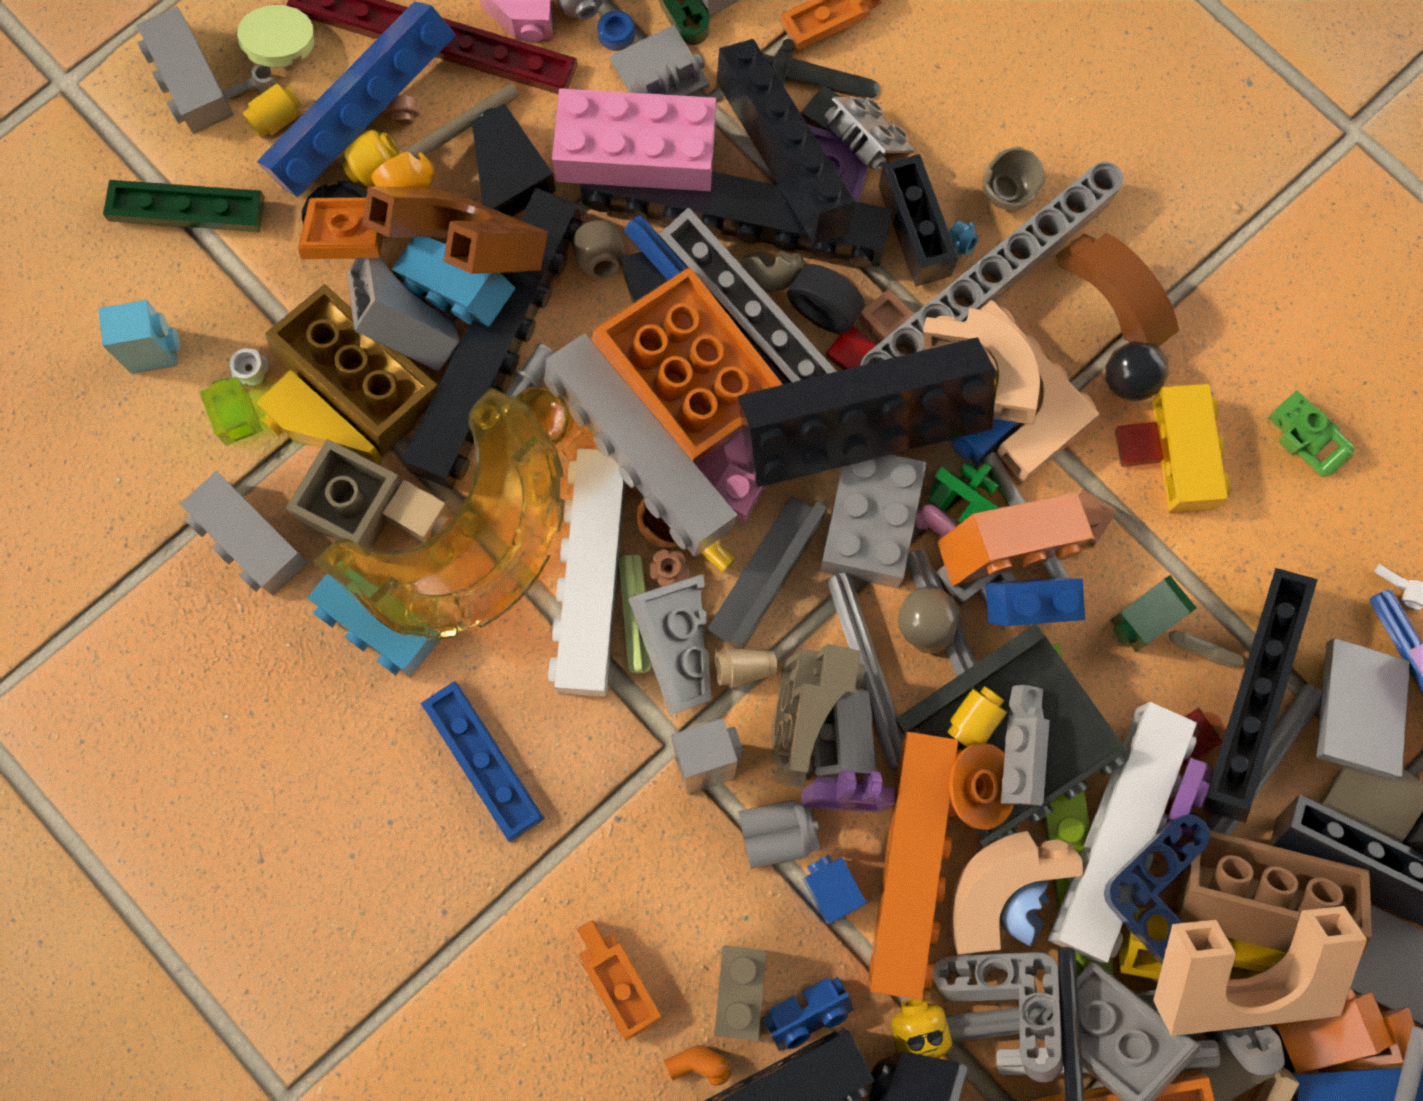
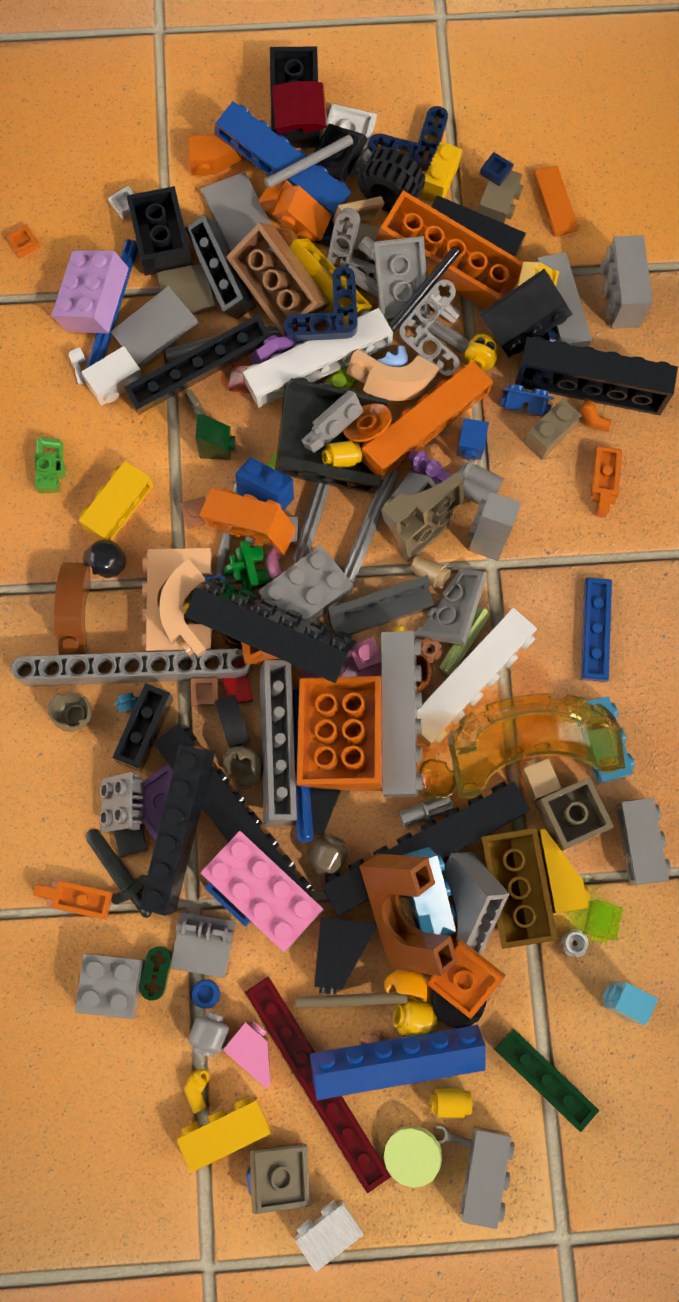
camera: 145 degrees left, 0 degrees up
(929, 619) = (321, 521): dark tan hair -> none
(1138, 444) = (136, 527): clear red tile -> none
(1302, 986) = (348, 257): light nougat arch -> none
(1348, 600) = (111, 375): none -> white brick

